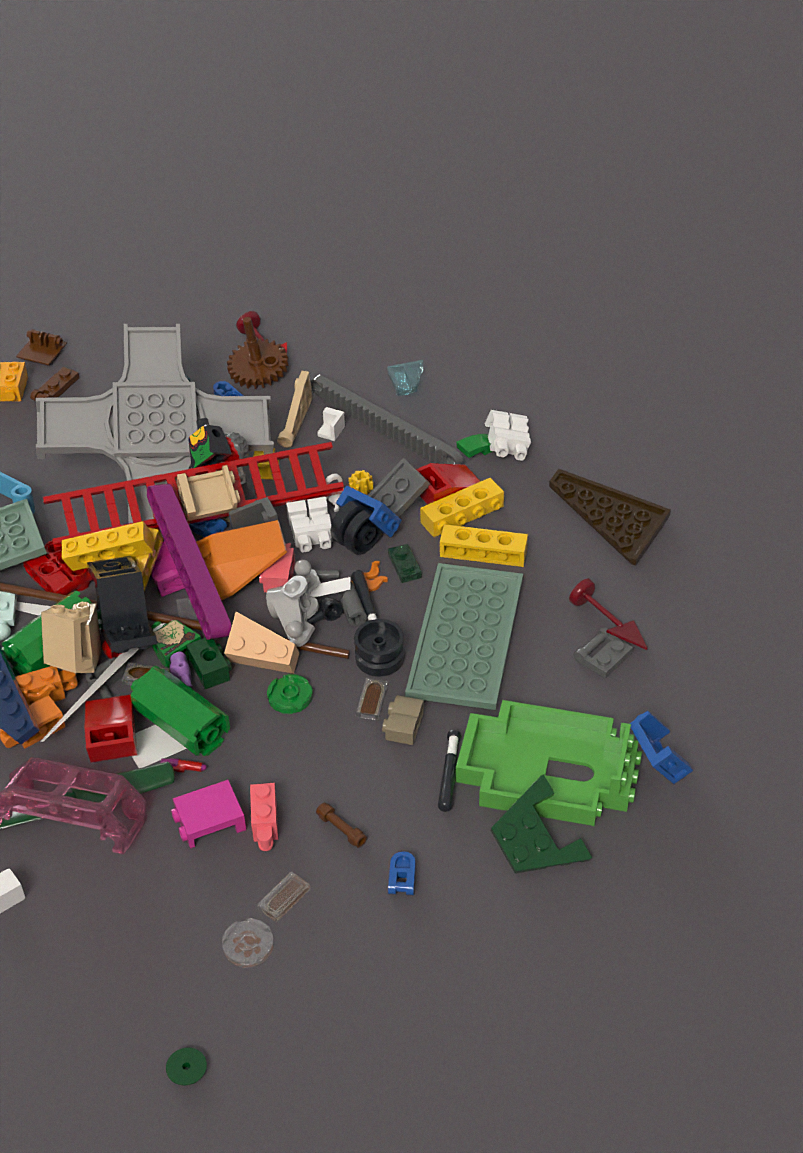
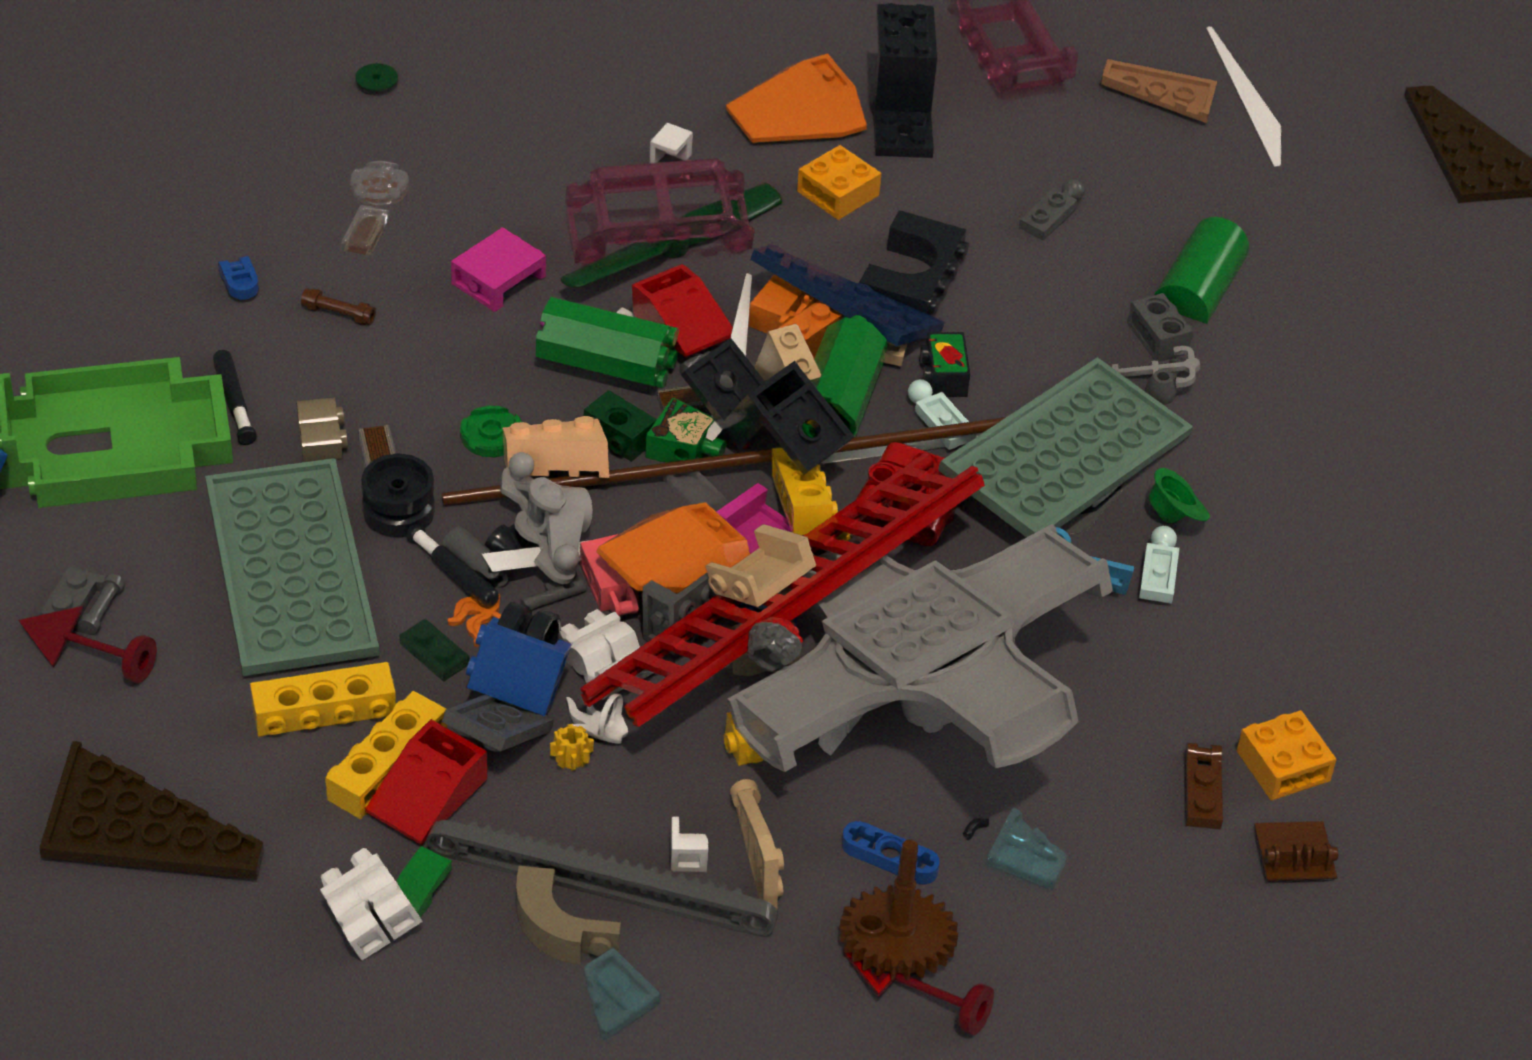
camera: 150 degrees right, 0 degrees up
(63, 639) = (797, 321): tan panel -> none
(107, 544) = (842, 462): yellow brick -> none
(180, 668) = (643, 398): medium lavender piece -> none
(189, 561) = (722, 481): magenta beam -> none
(208, 445) = (812, 612): black torso -> none
(264, 815) = (433, 282): coral brick -> none
(418, 403) = (553, 929): none -> dark tan arch
(526, 839) = (100, 337): dark green wing -> none

